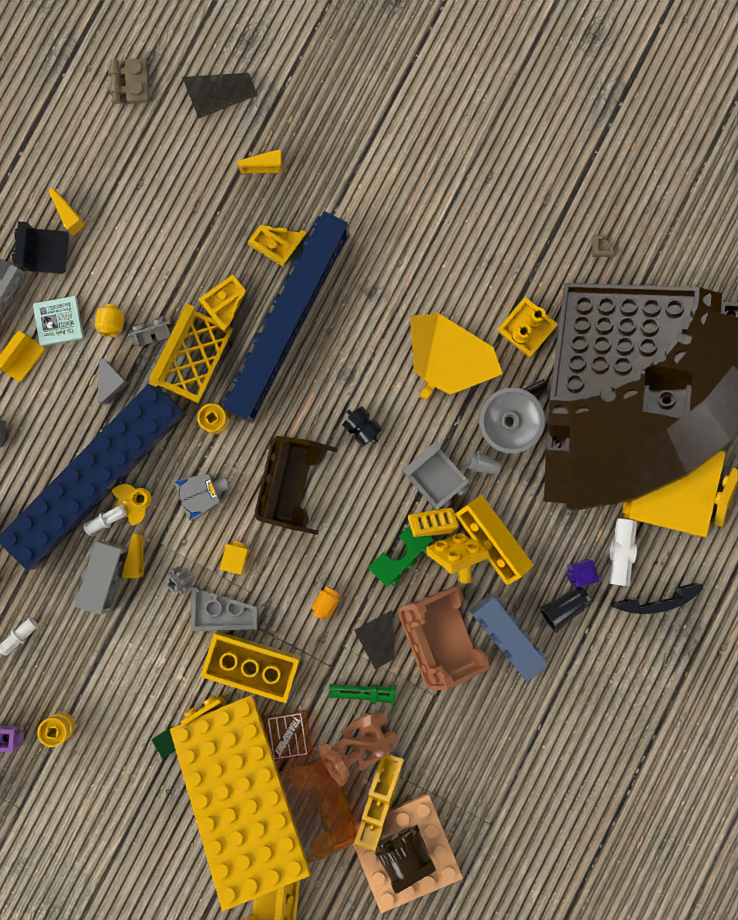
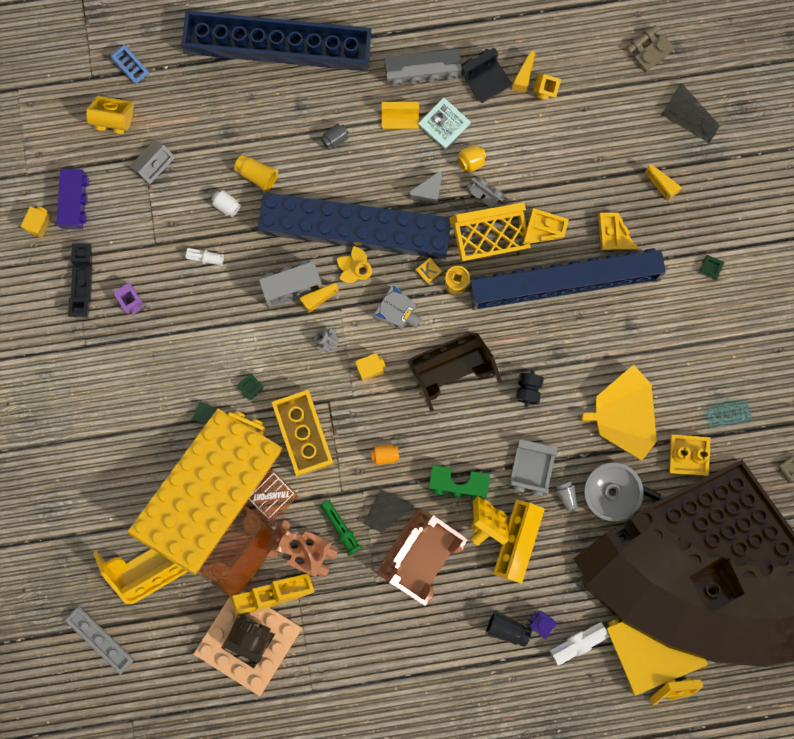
camera: 50 degrees right, 5 degrees down
(56, 729) = (161, 330): yellow wheel -> none
(93, 201) = (546, 86): none -> yellow brick
(104, 520) = (329, 256): white axle -> none
(172, 681) = (250, 386): none -> dark green tile
(186, 437) = (429, 271): none -> yellow tile
(220, 613) = (323, 385): light grey wing -> none
(372, 179) = (711, 267): none -> dark green tile
(445, 518) = (508, 495): yellow slope -> none
(508, 636) = (456, 603): sand blue wedge -> none
(524, 247) = (745, 411): none -> clear light blue slope
(683, 595) = (582, 710): black slope -> none

